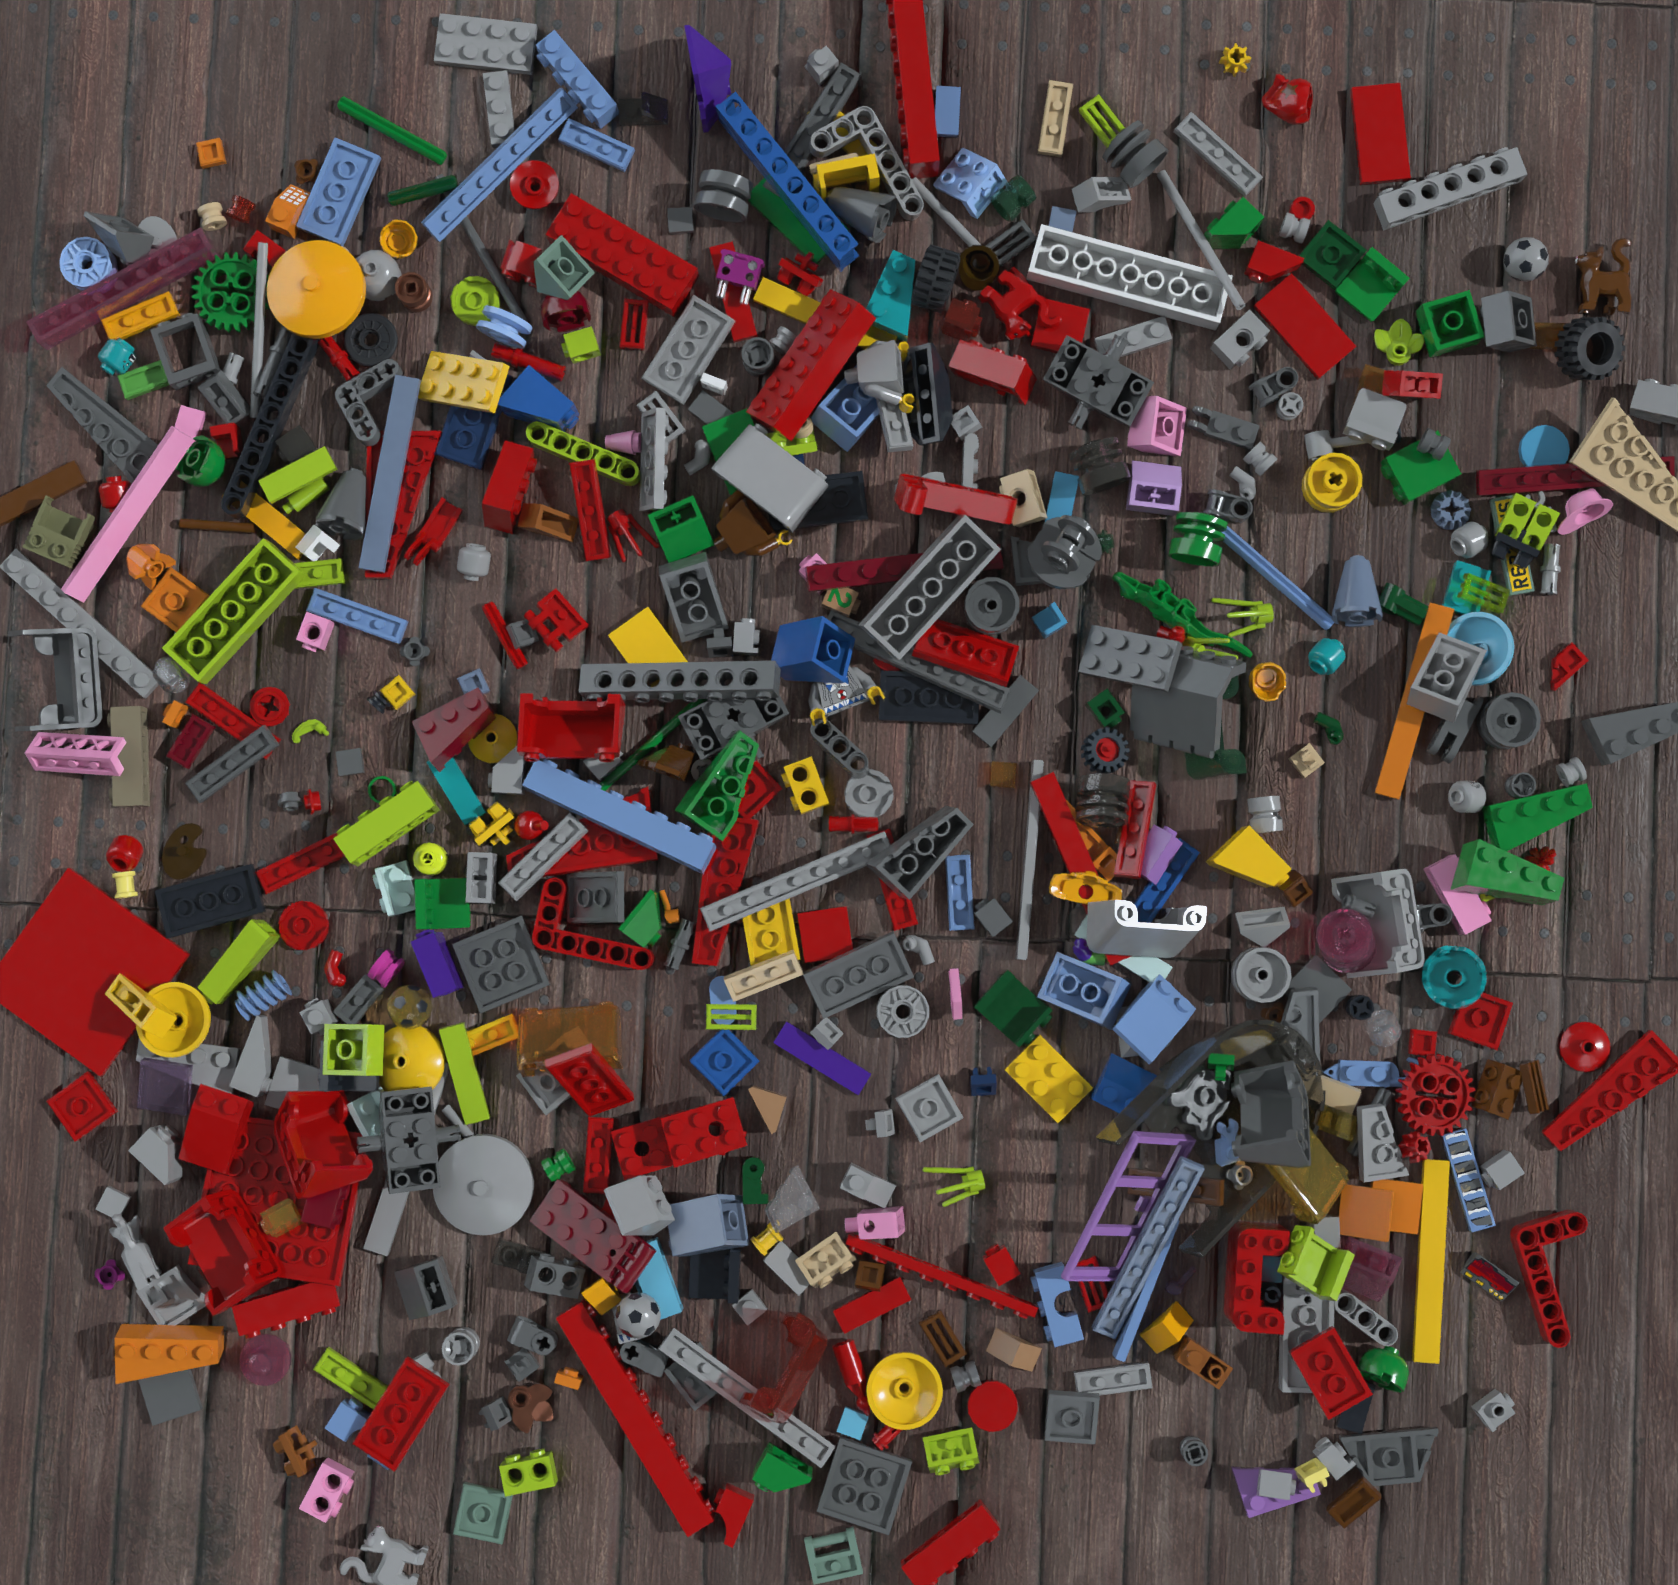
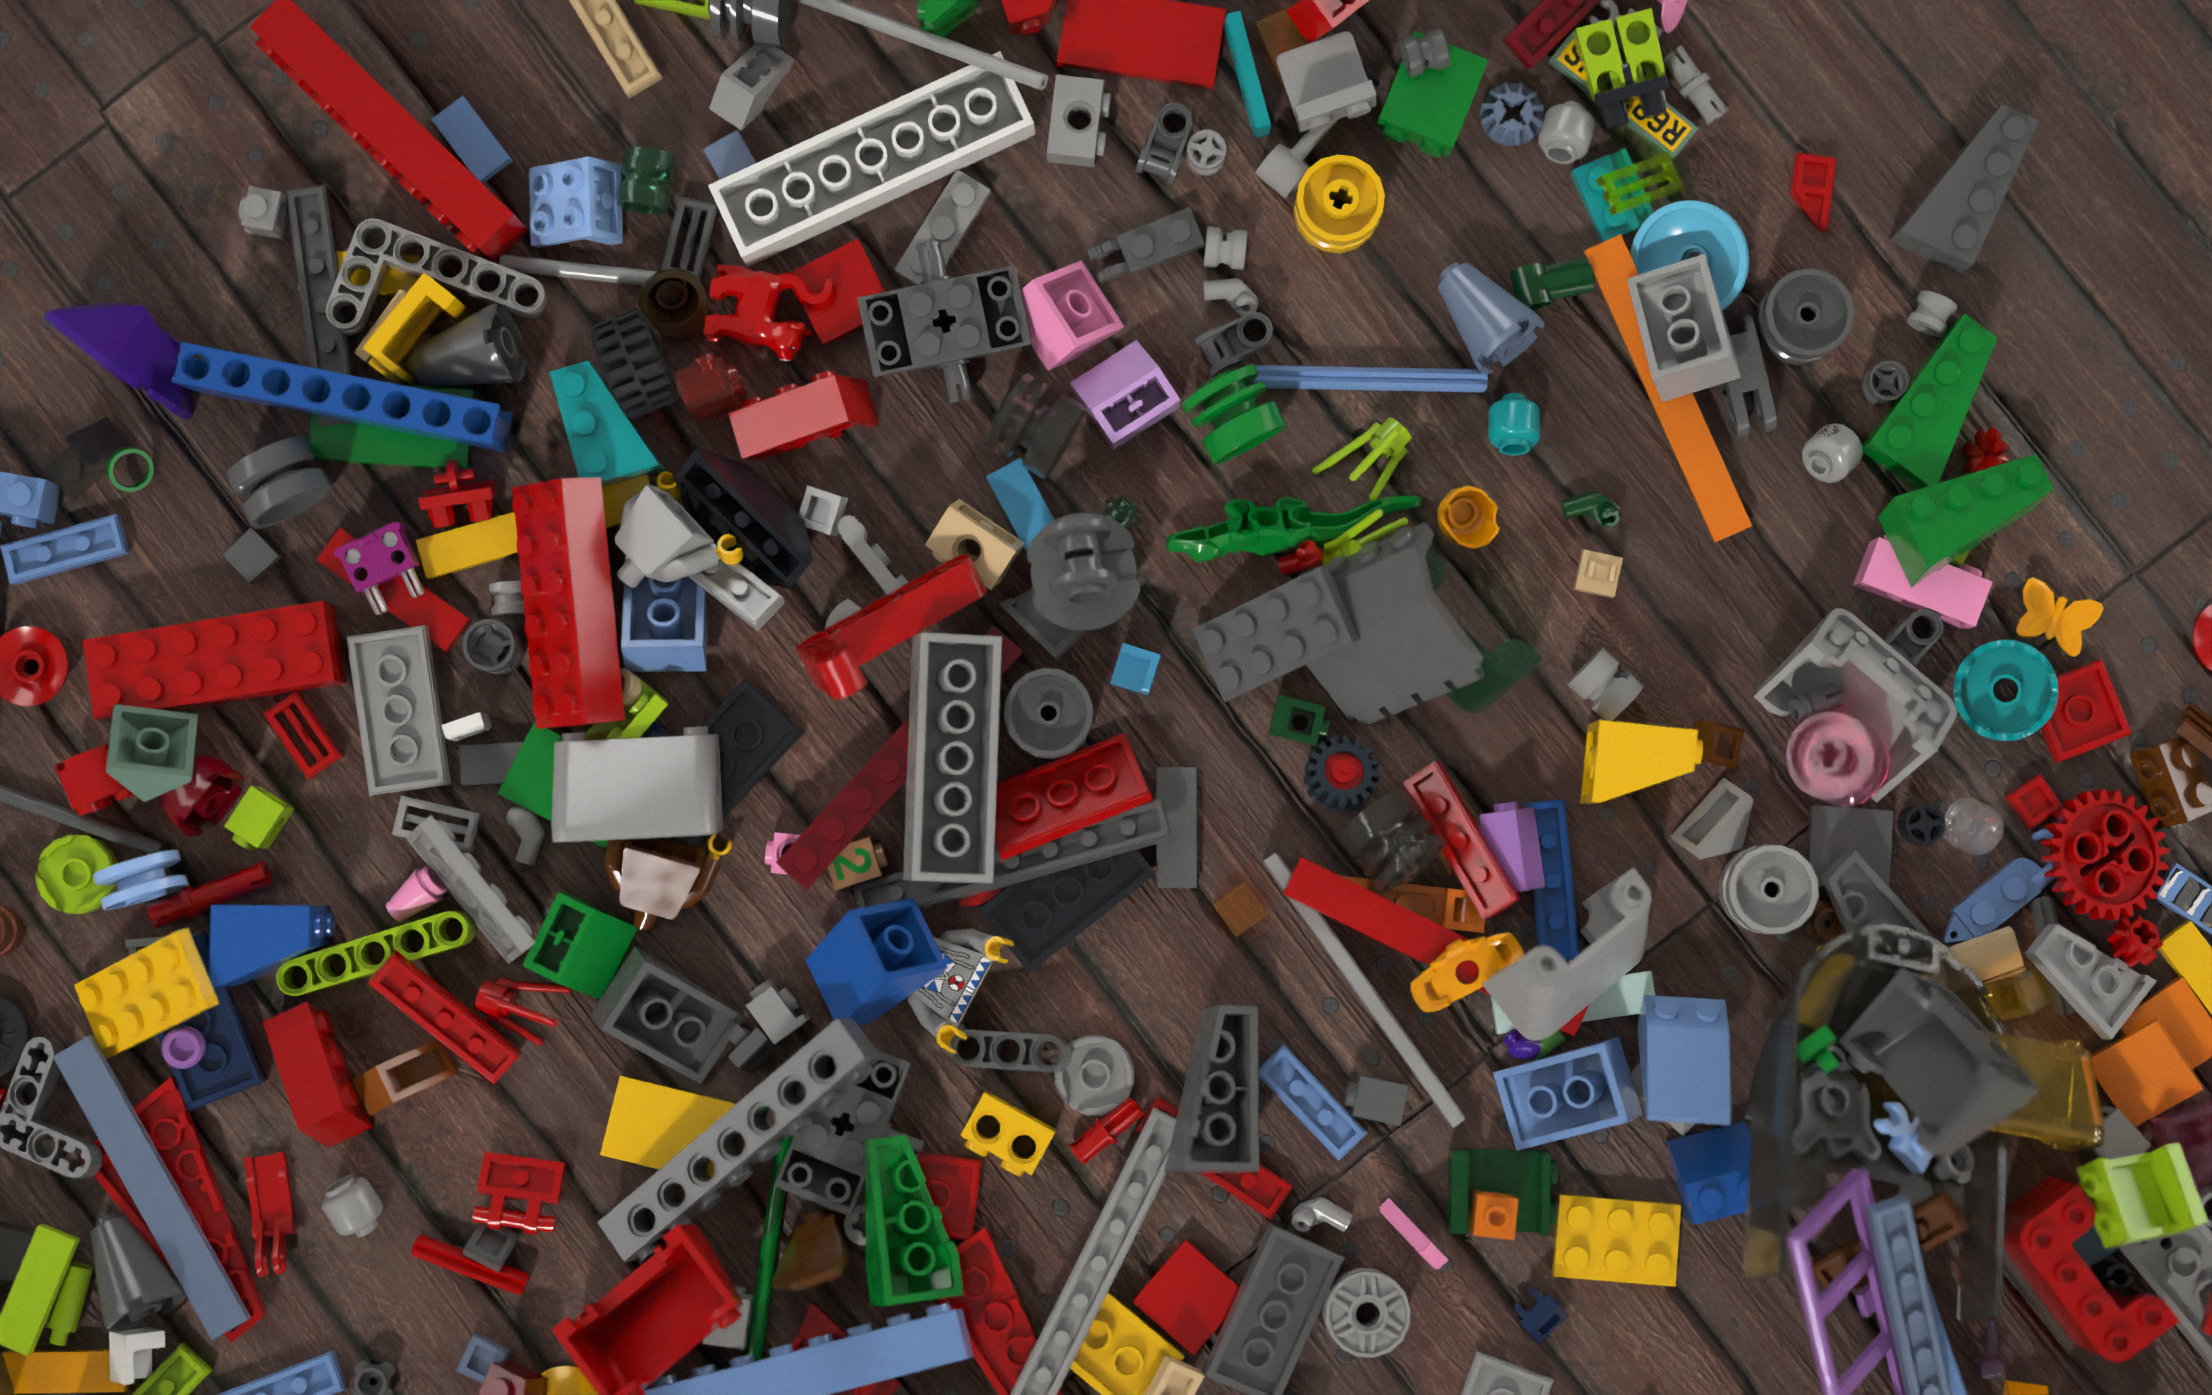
camera: 40 degrees left, 0 degrees up
(458, 421) = (183, 1047): none -> medium lavender tile
(658, 144) = (140, 485): none -> green piece
(1001, 1015) = (1493, 1214): none -> orange brick
(1340, 385) = (1247, 74): none -> teal tile
(1506, 966) = (2053, 619): none -> light orange piece

